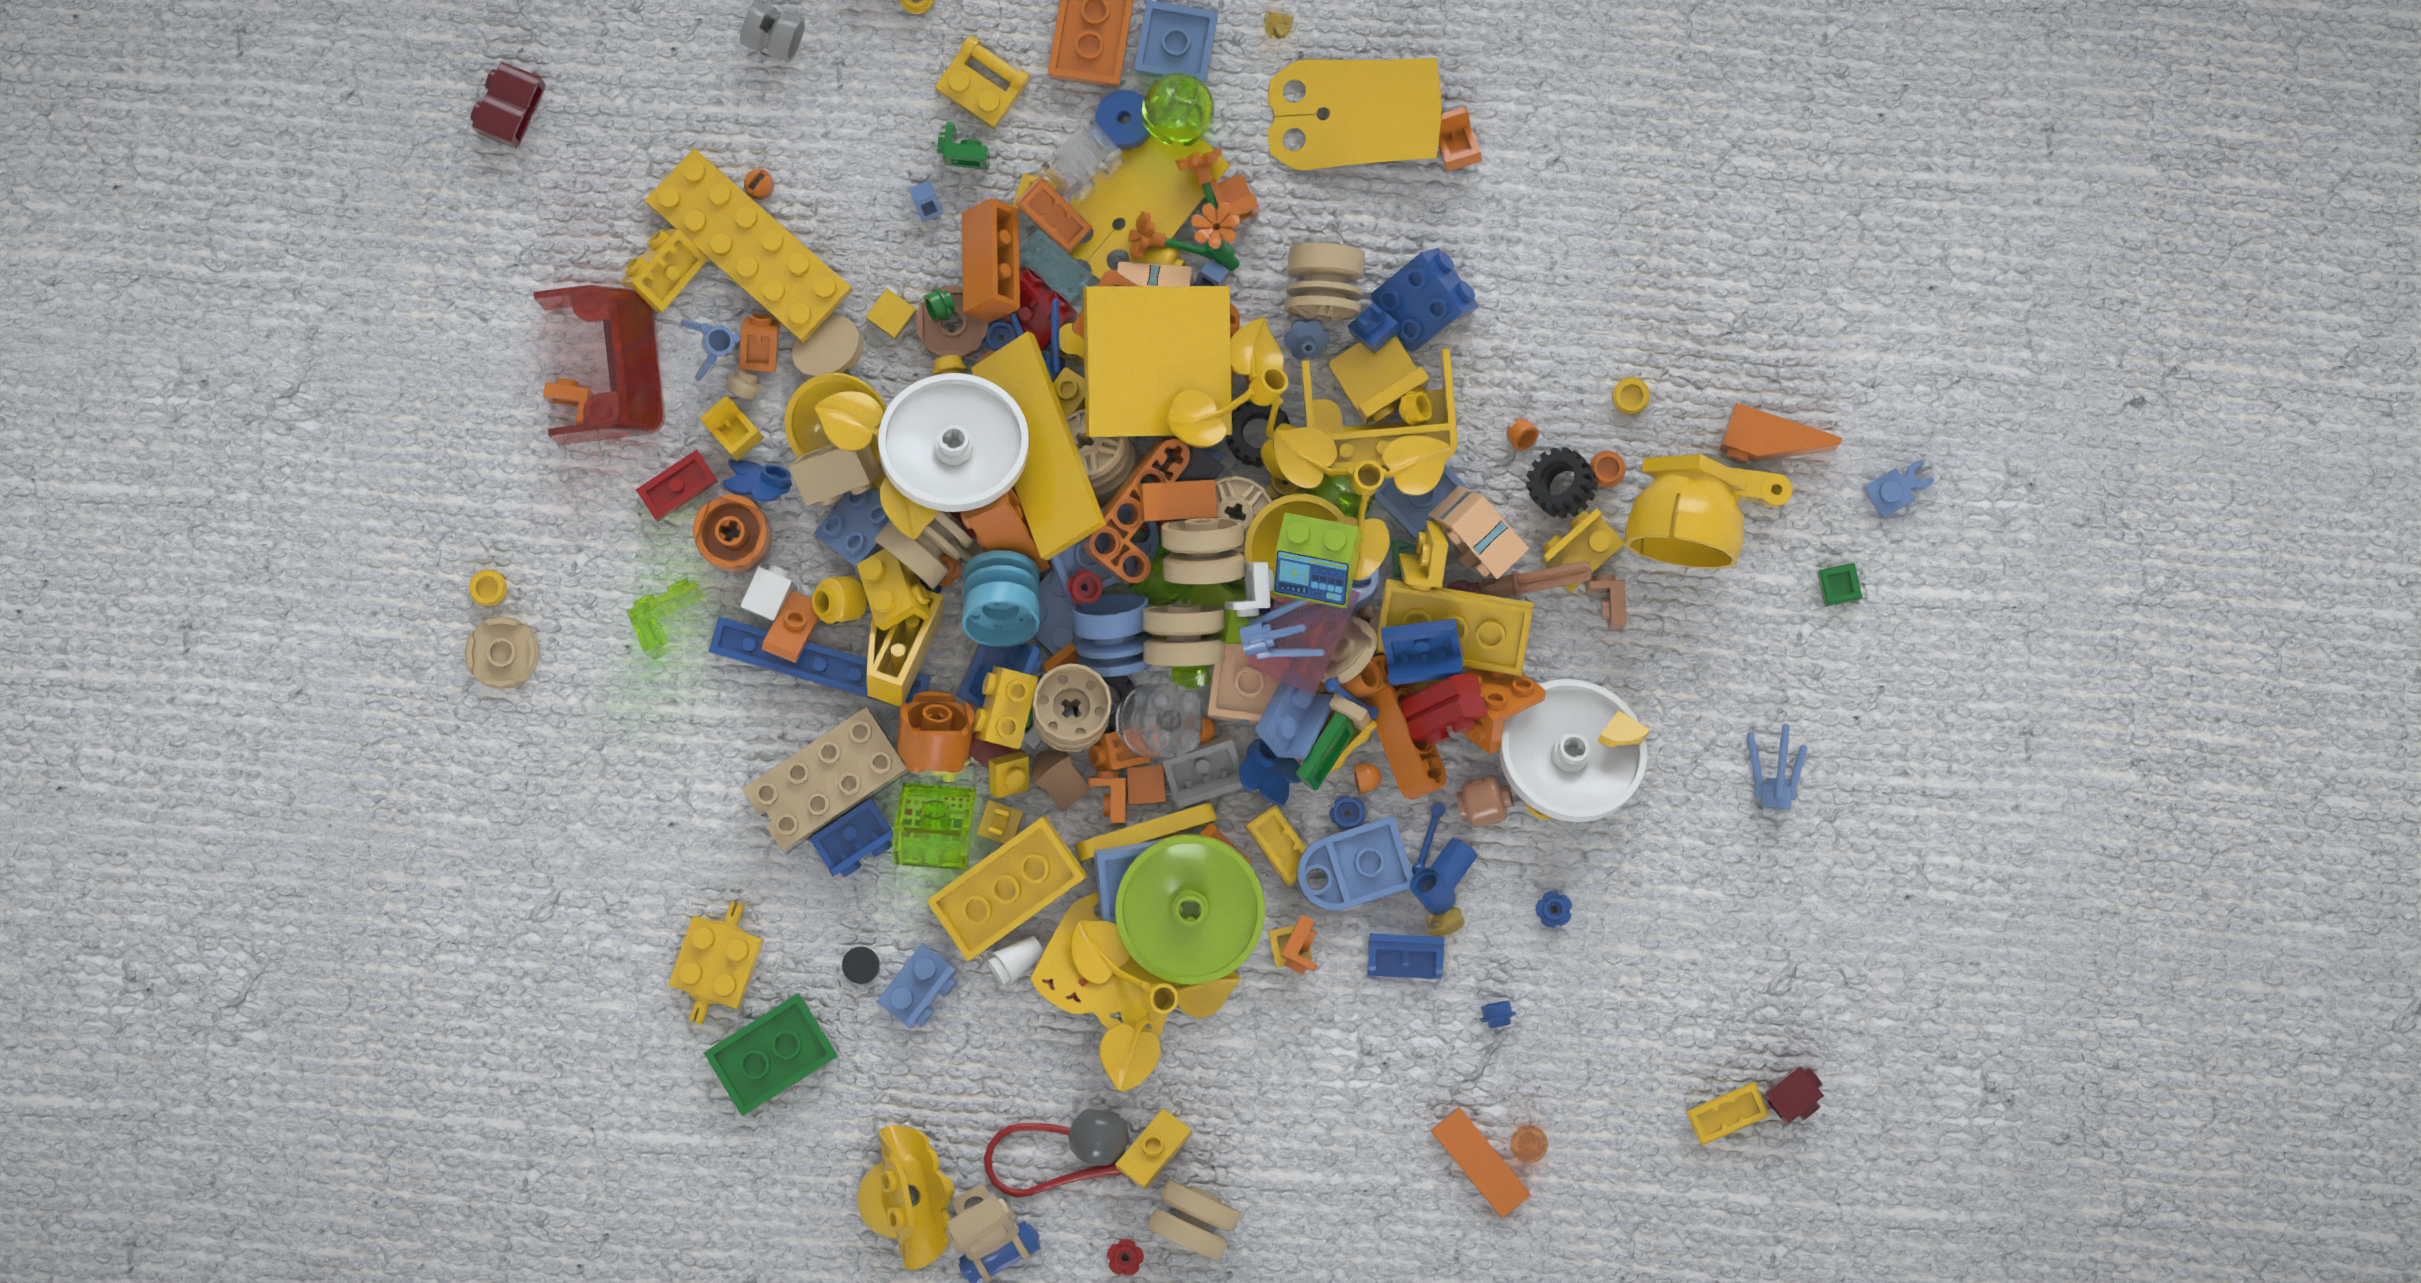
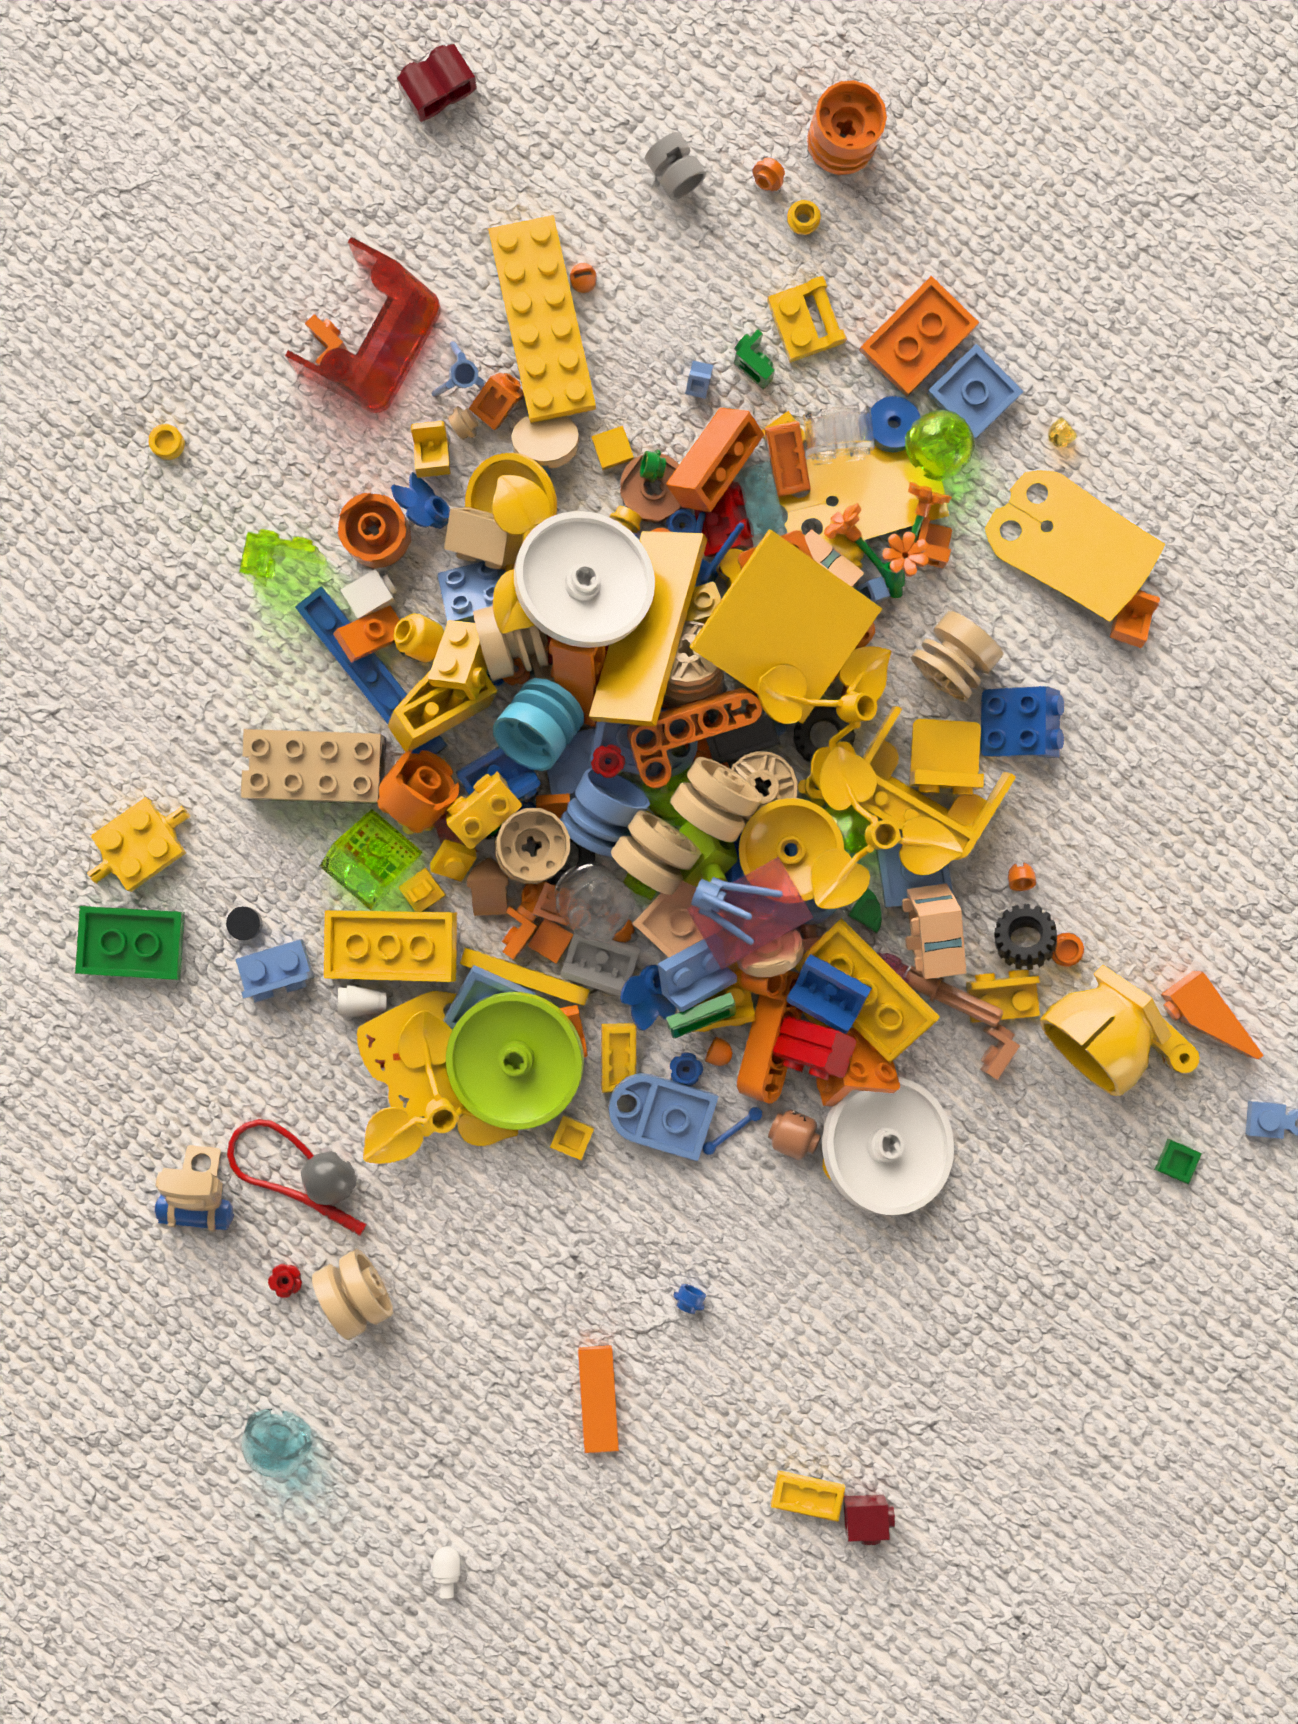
camera: 30 degrees right, 5 degrees up
(502, 653) = (142, 498): tan tile -> none
(663, 268) = (465, 291): yellow bracket -> none
(677, 485) = (360, 464): red plate -> none
(852, 838) = (303, 825): blue bracket -> none
(886, 1198) = (135, 1109): yellow piece -> none
(1154, 1149) = (362, 1217): yellow plate -> none
(1178, 500) = (725, 746): orange tile -> none
(1258, 585) = (740, 855): white bracket -> none
(1300, 938) = (581, 1141): orange bracket -> none
(1307, 338) = (911, 689): medium blue plant -> none
(1316, 560) = (797, 870): slope -> none
(1332, 685) = (741, 971): blue hinge -> none
(1357, 715) = (743, 1003): tan tile -> none
(1374, 328) = (968, 717): blue tile -> none
(1405, 956) = (653, 1206): blue hinge -> none
(1415, 408) = (956, 803): yellow plate -> none
(1428, 568) = (880, 930): yellow bracket -> none
(1436, 884) = (722, 1169): blue piece -> none
(1446, 923) = (700, 1203): clear yellow tile -> none
(1529, 1144) = (643, 1411): clear orange plate -> none
(1550, 919) = (788, 1242): blue plate -> none
(1623, 731) = (936, 1159): yellow tile -> none
(1630, 396) = (1124, 907): yellow tile -> none
(1777, 791) = (1020, 1284): medium blue plant -> none

